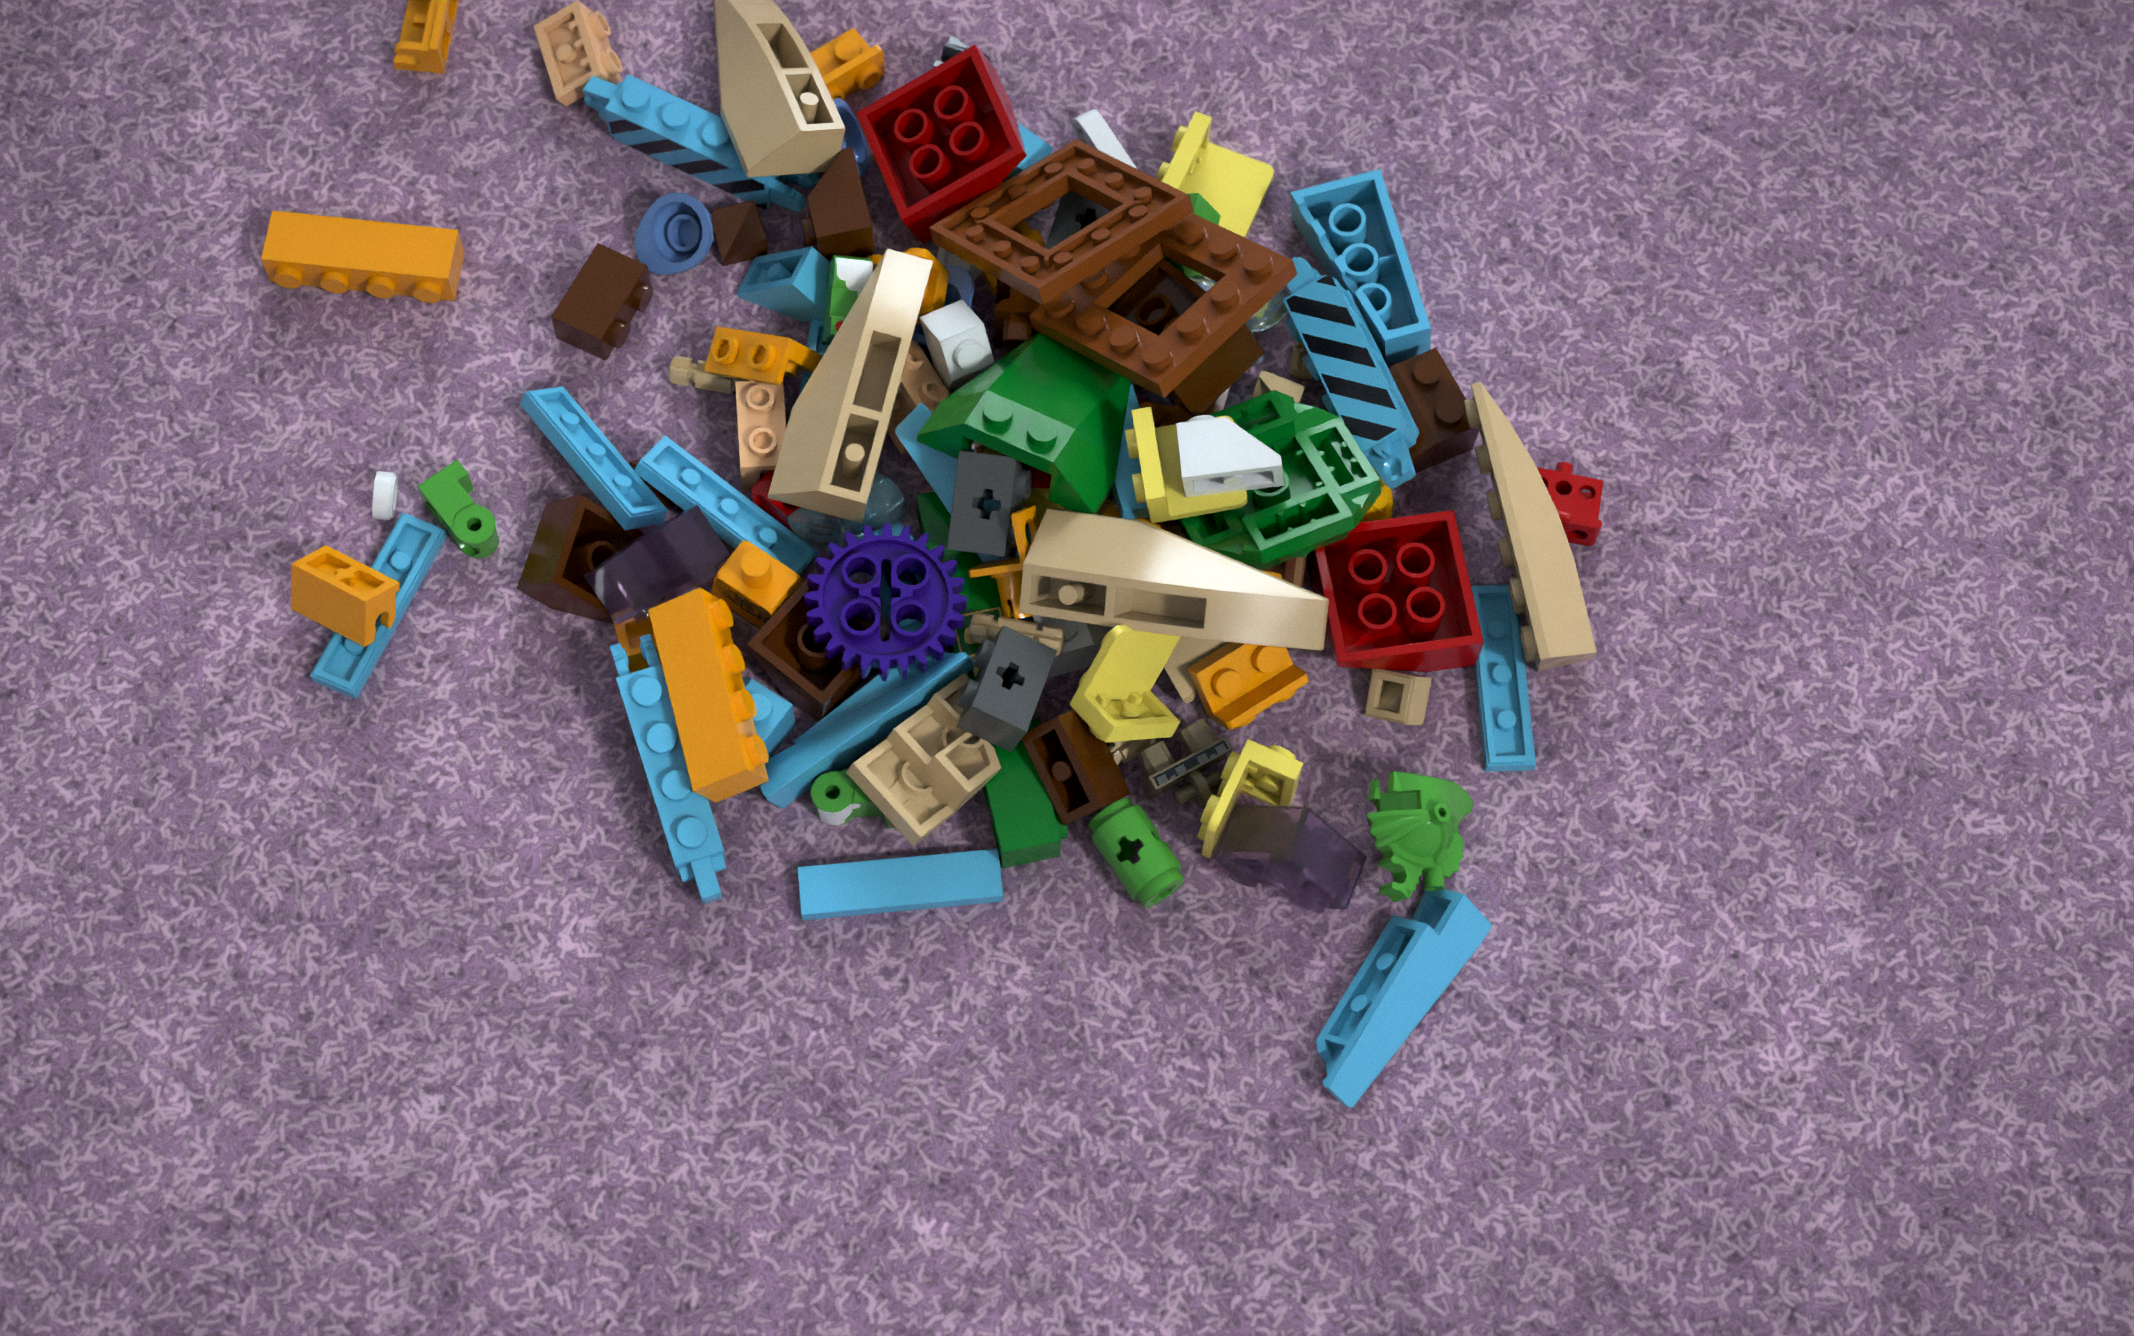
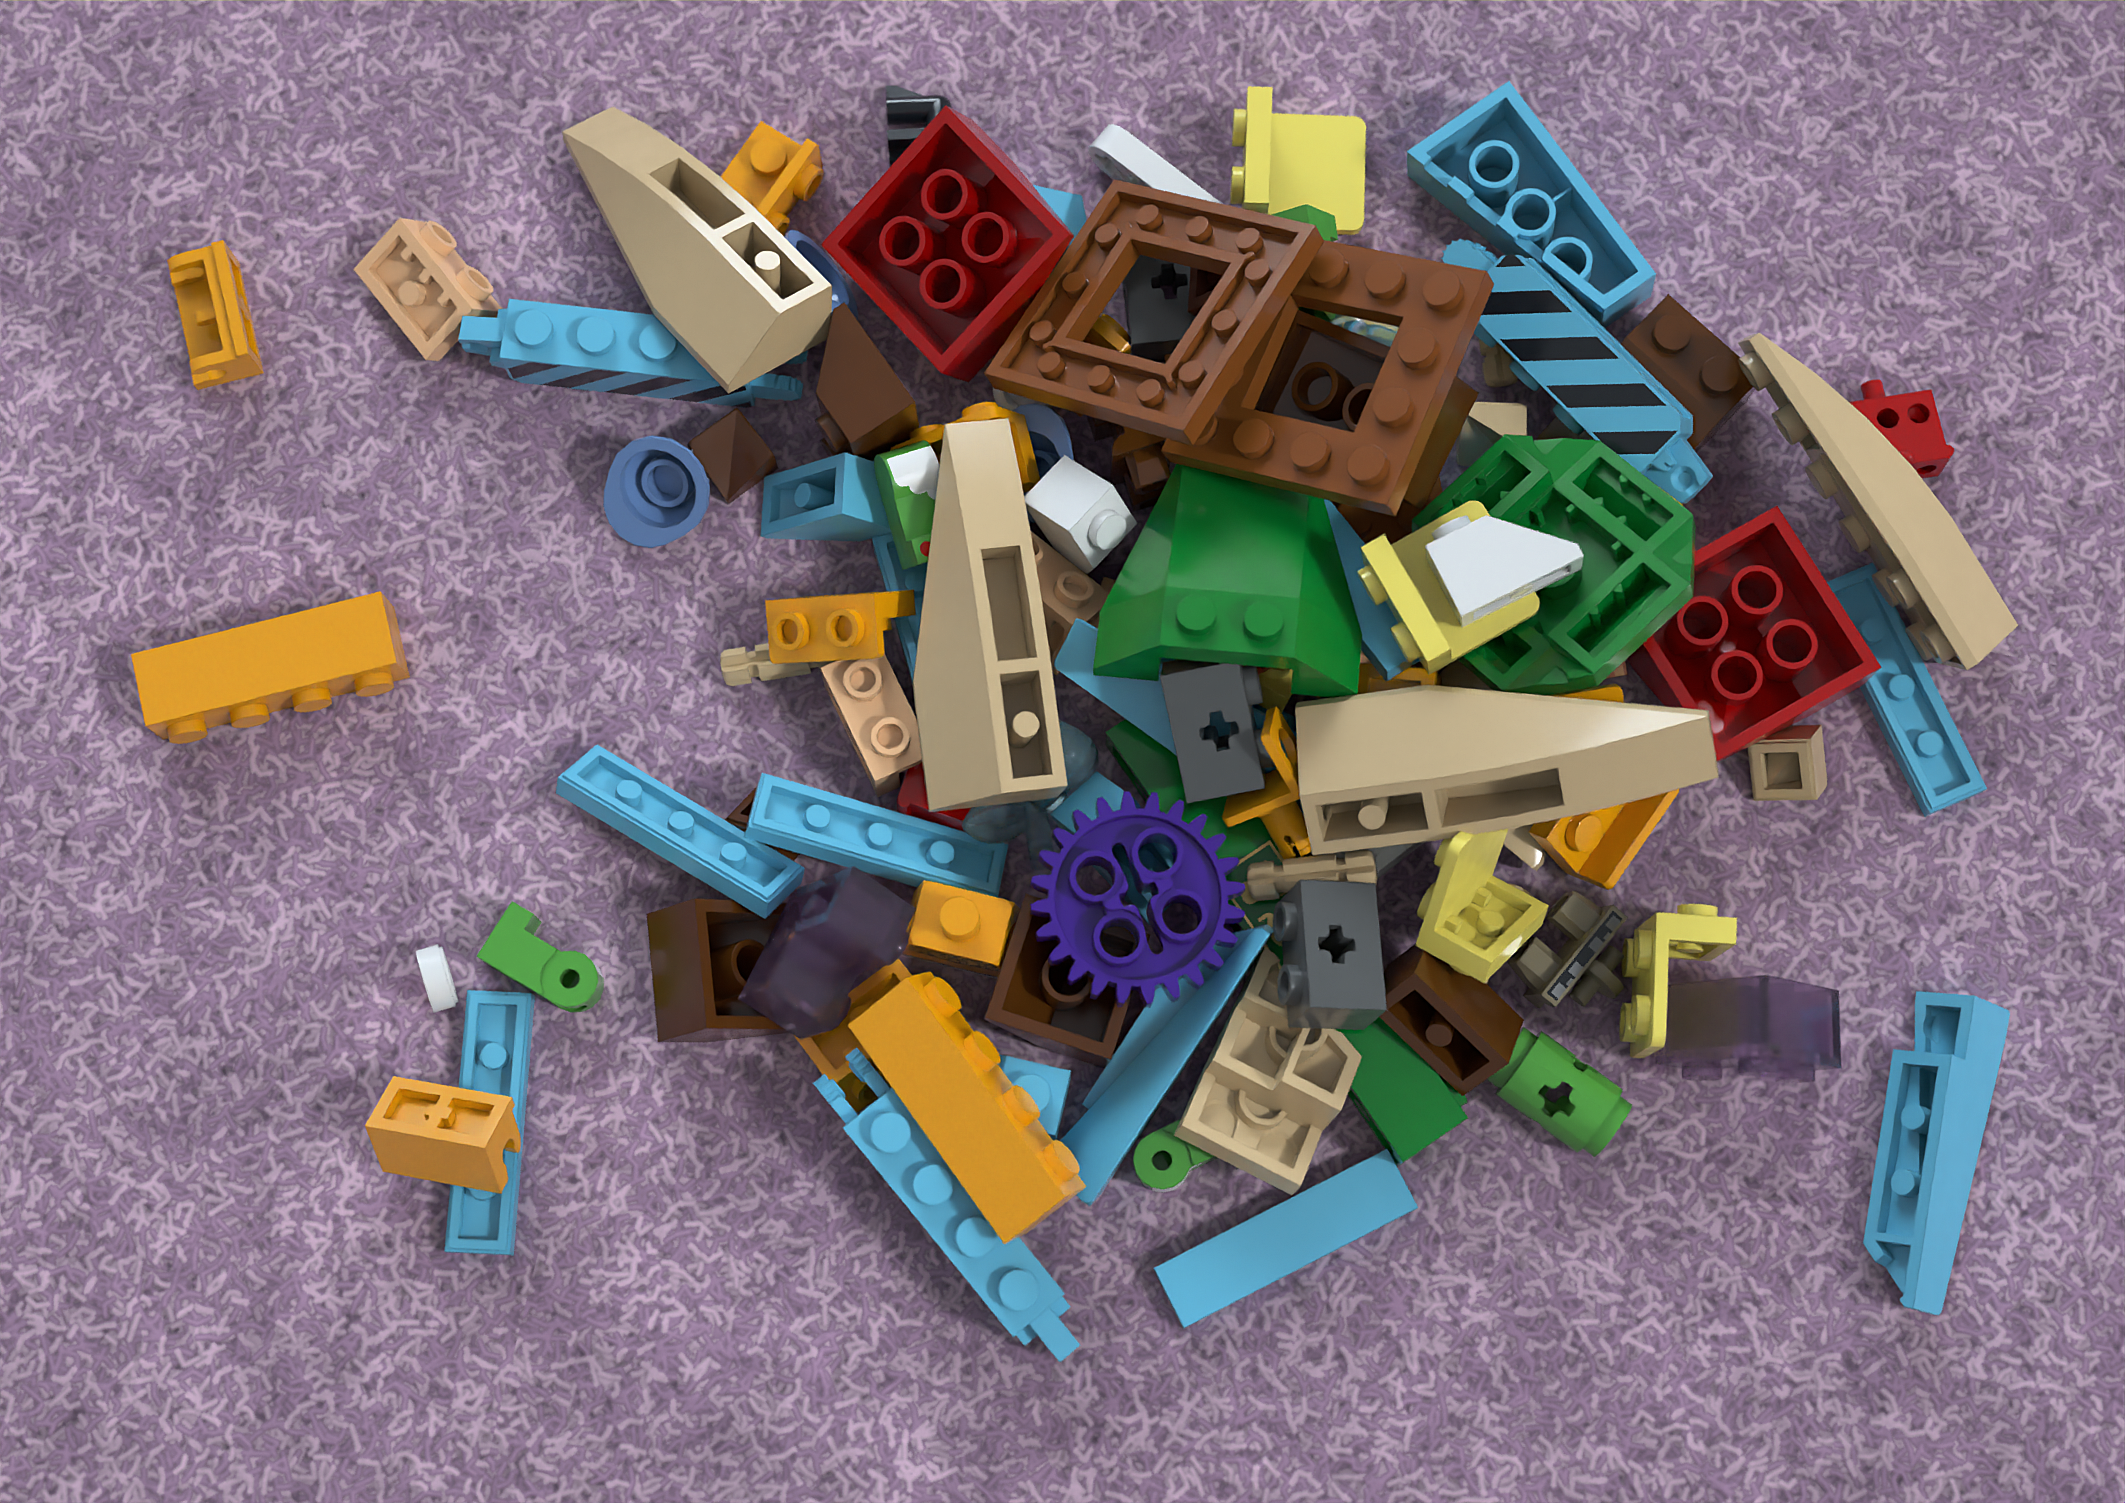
camera: 15 degrees left, 10 degrees up
(602, 302) = (602, 615): reddish brown brick -> none
(1417, 831) = (1887, 940): bright green helmet -> none

